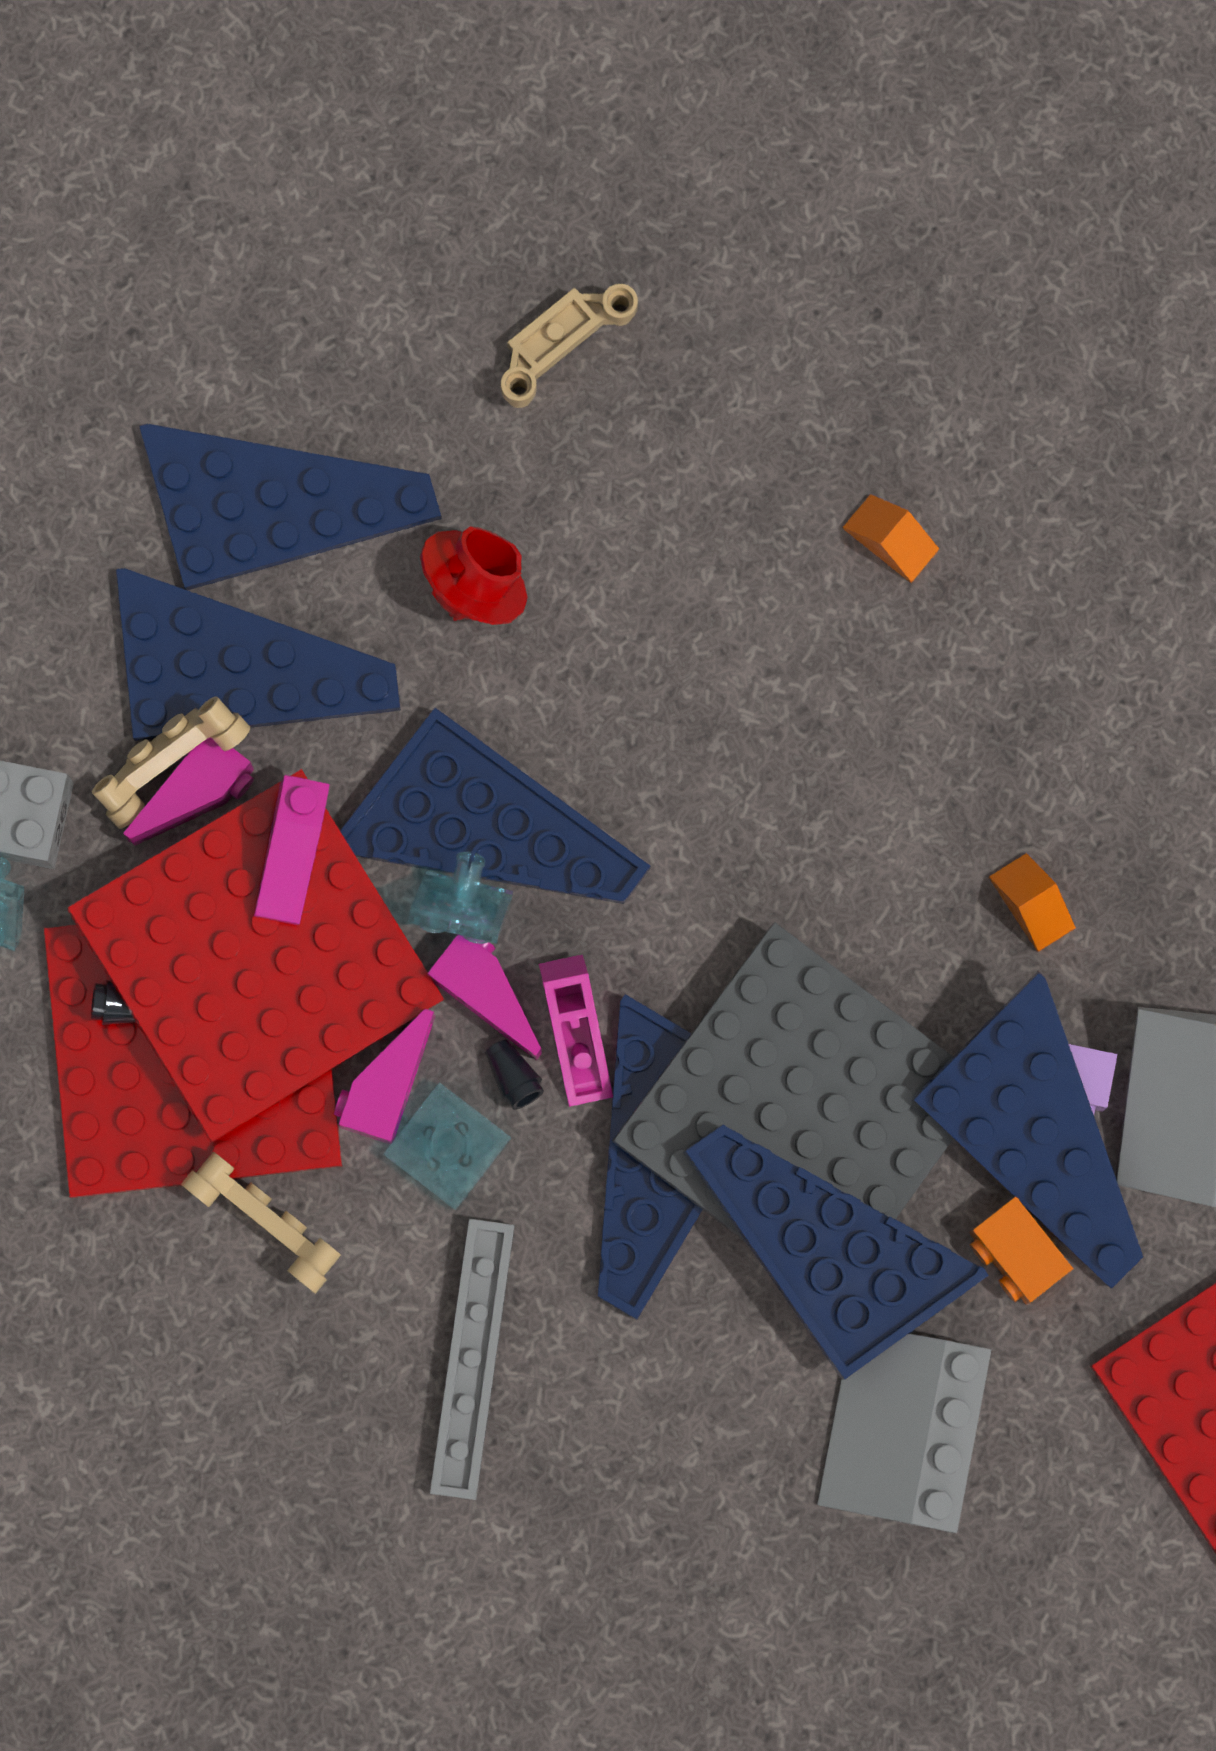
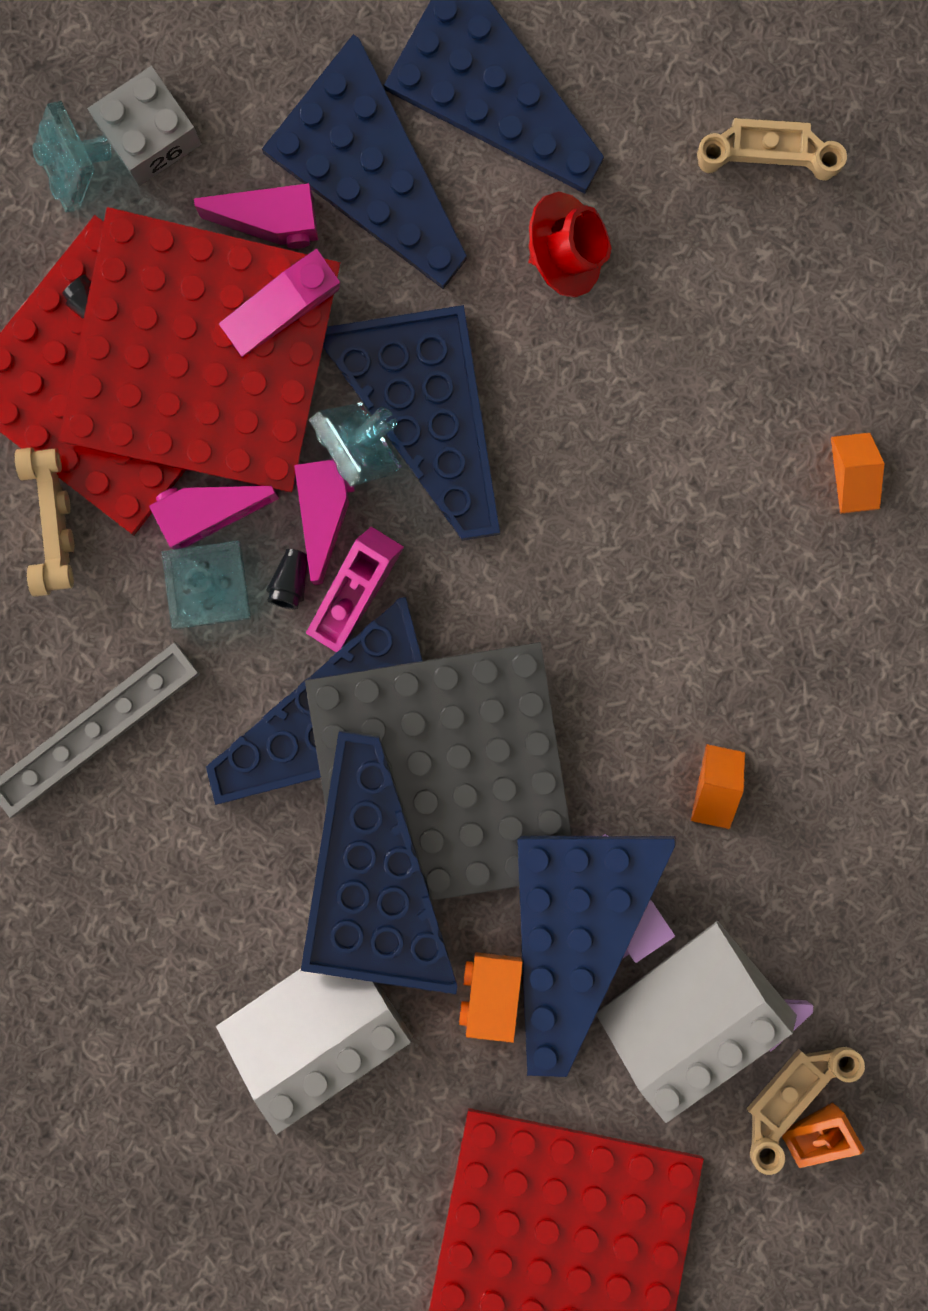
camera: 55 degrees right, 5 degrees up
(153, 757) = (255, 168): tan plate -> none

